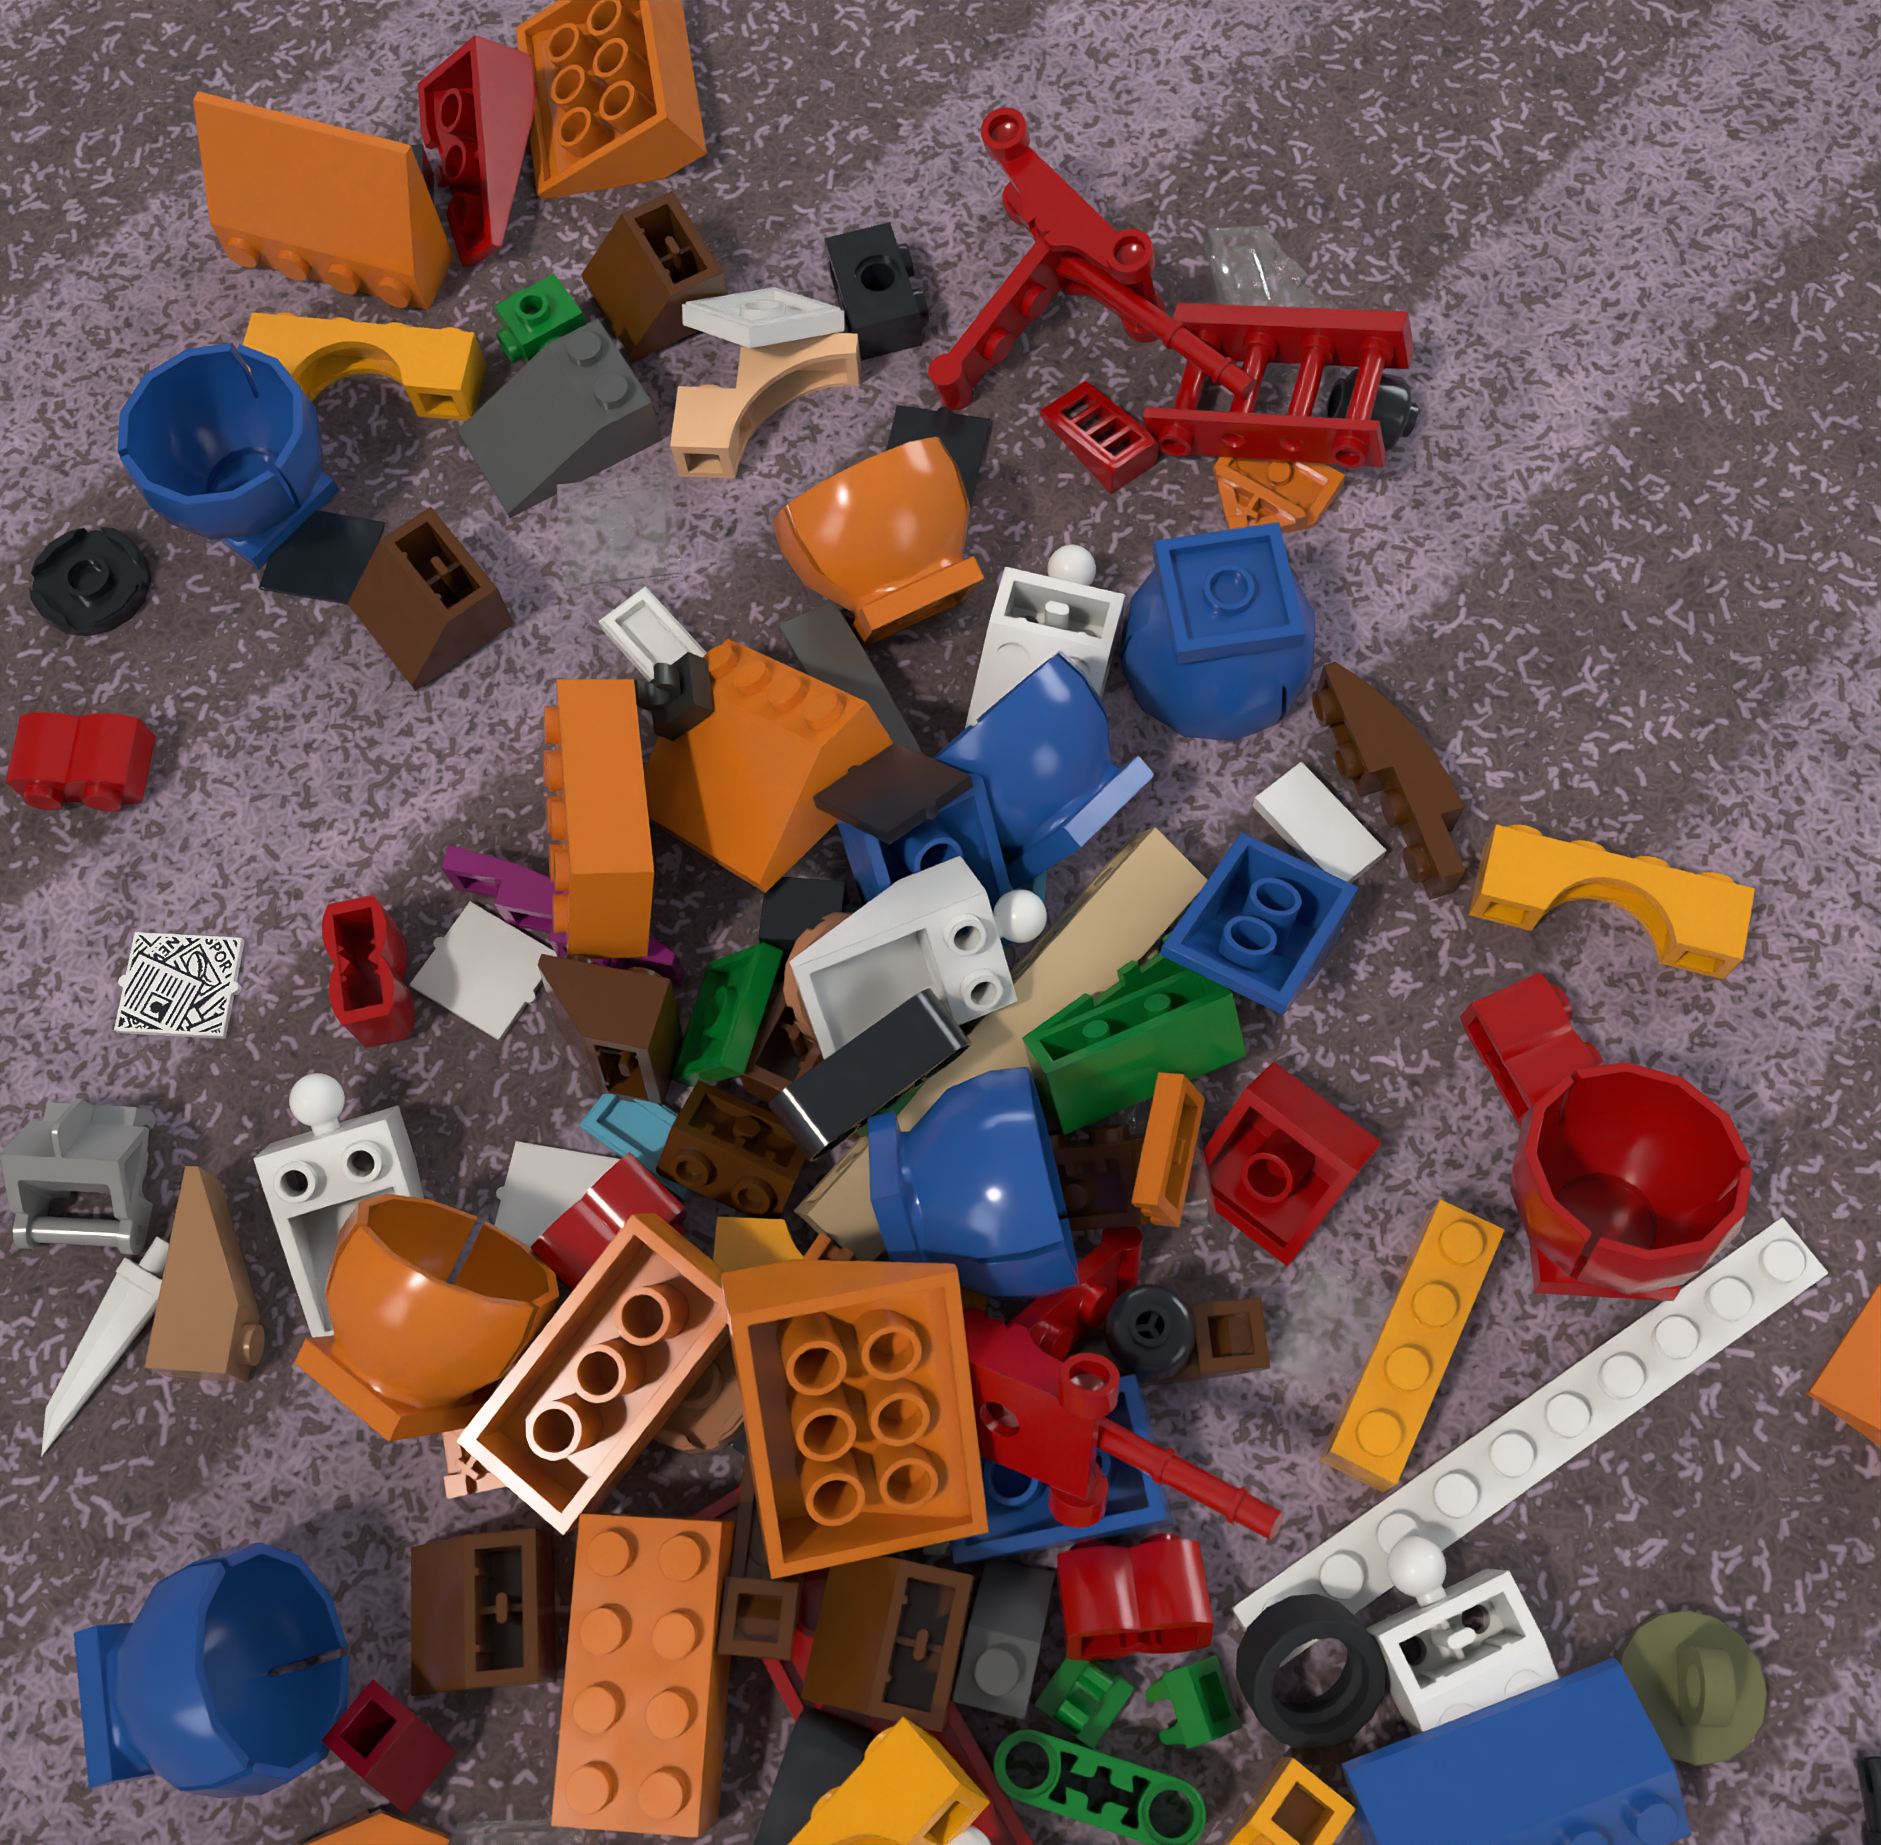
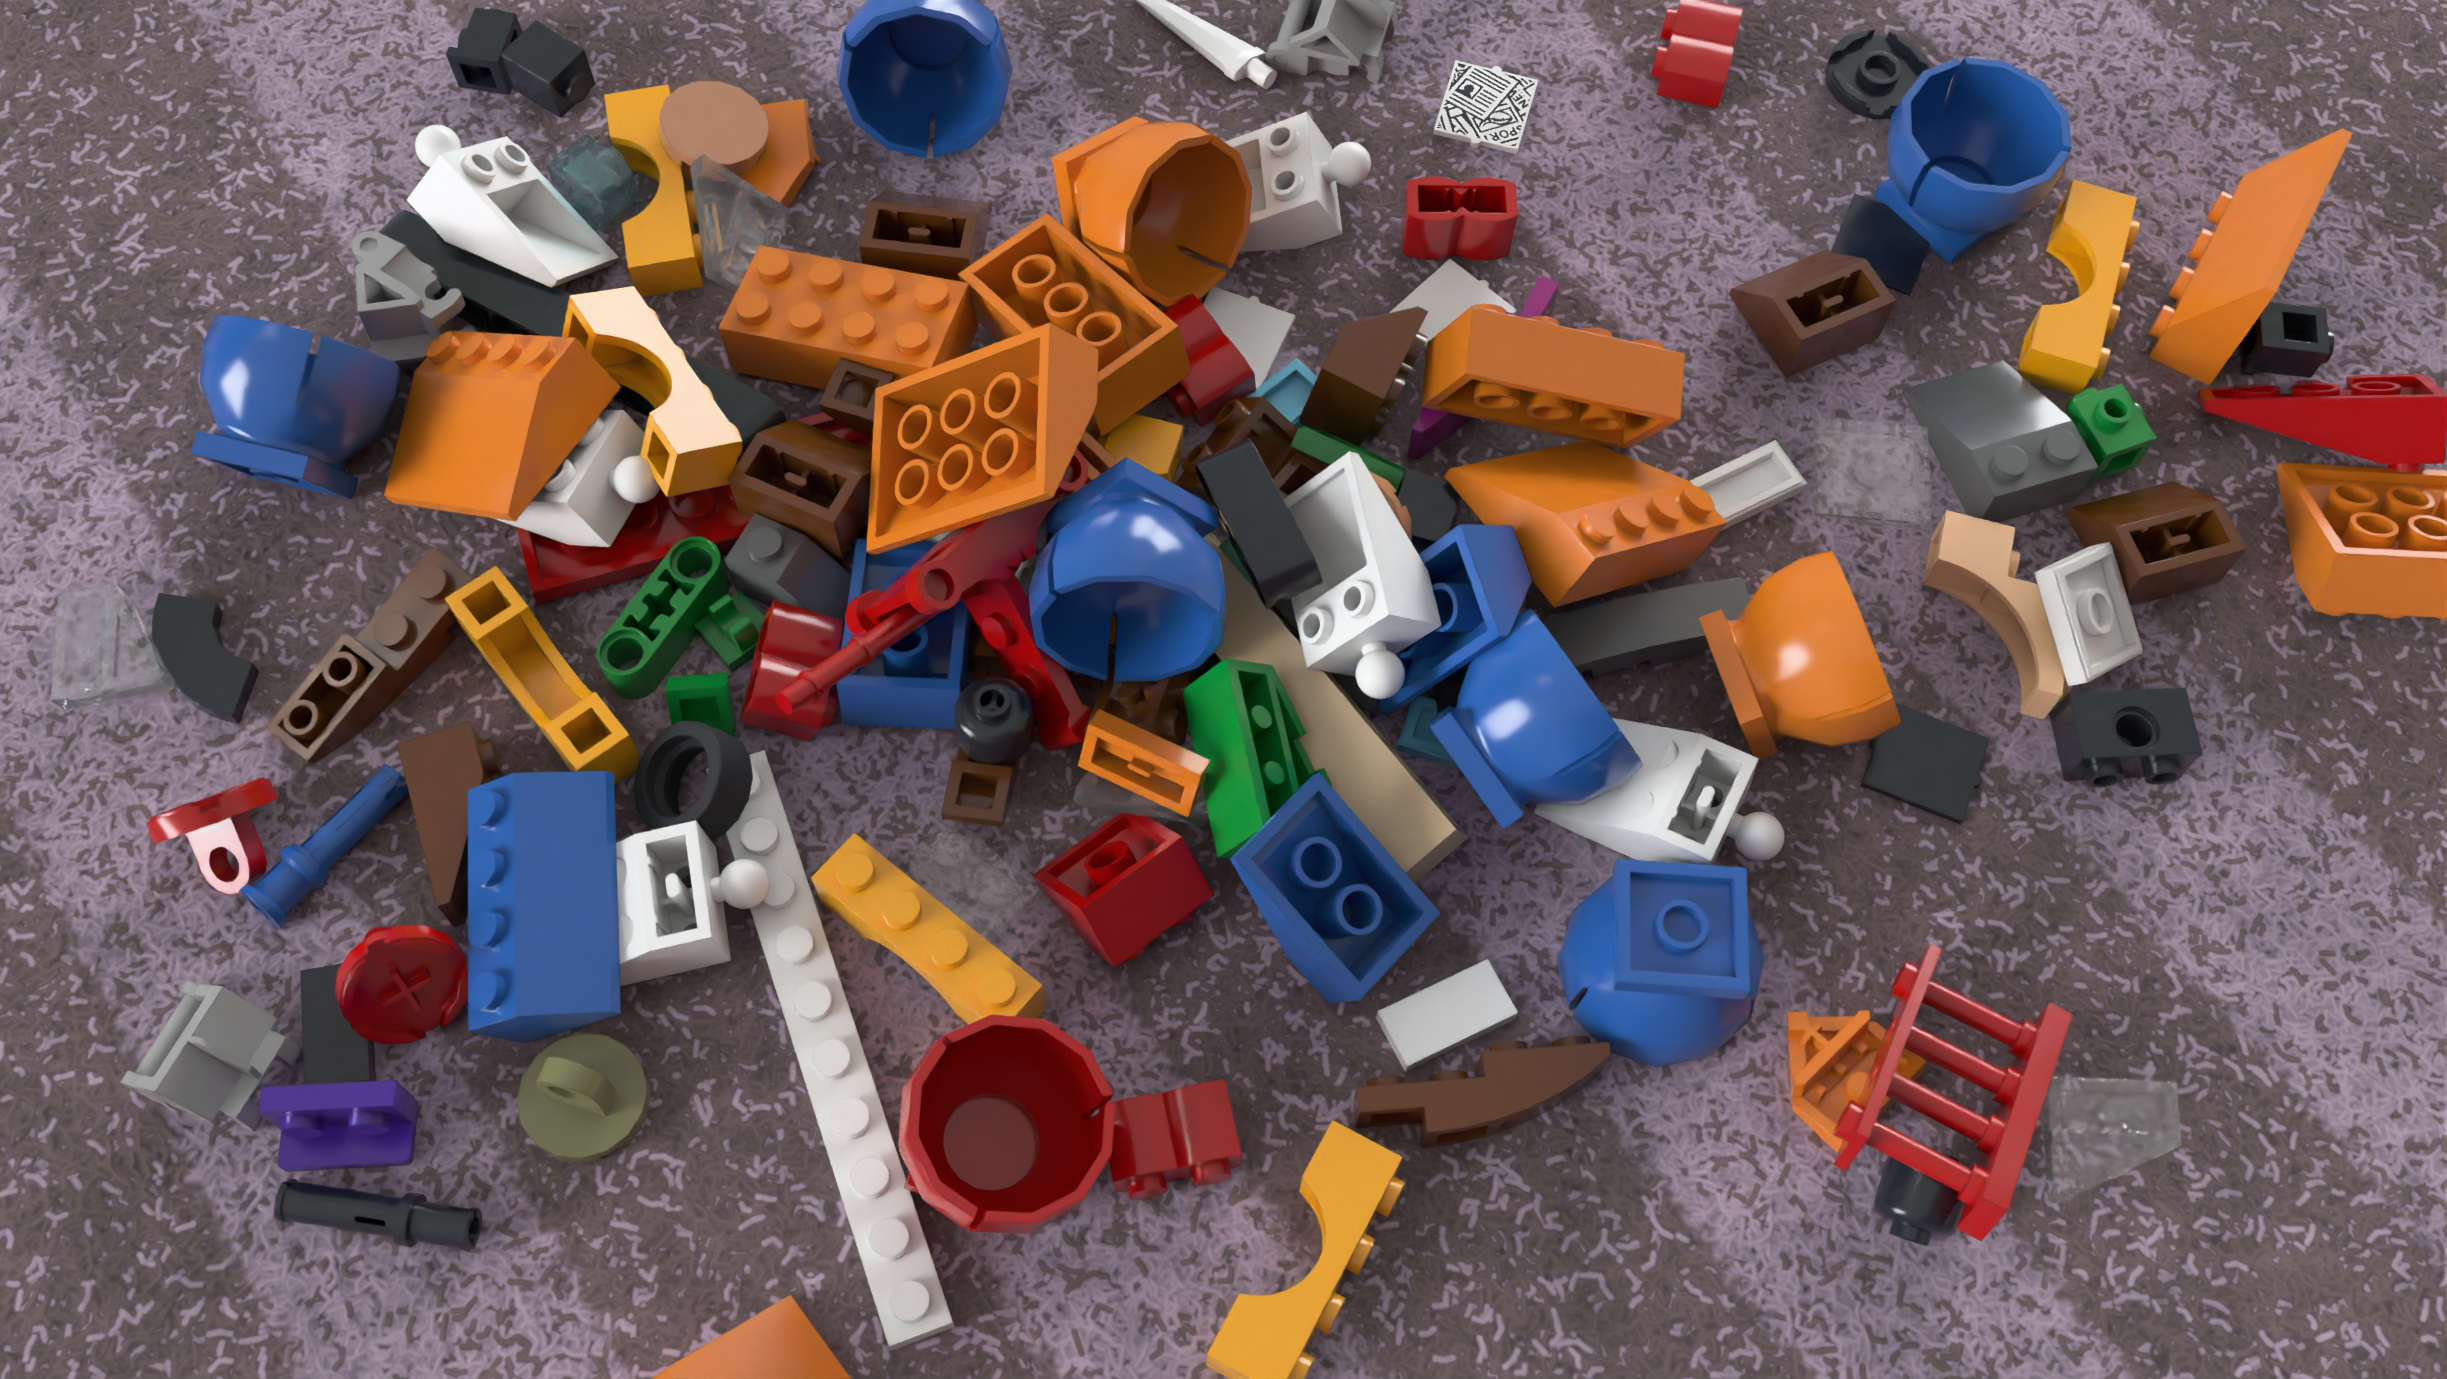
camera: 95 degrees right, 5 degrees down
(205, 1304) = (1226, 92): medium nougat slope -> none
(388, 1746) = (850, 164): dark red brick -> none
(676, 695) = (1668, 460): pearl dark grey tile -> none
(893, 792) = (1502, 564): black piece -> none
(1071, 254) = (2140, 909): red piece -> none
(1109, 470) = (1891, 940): red slope -> none

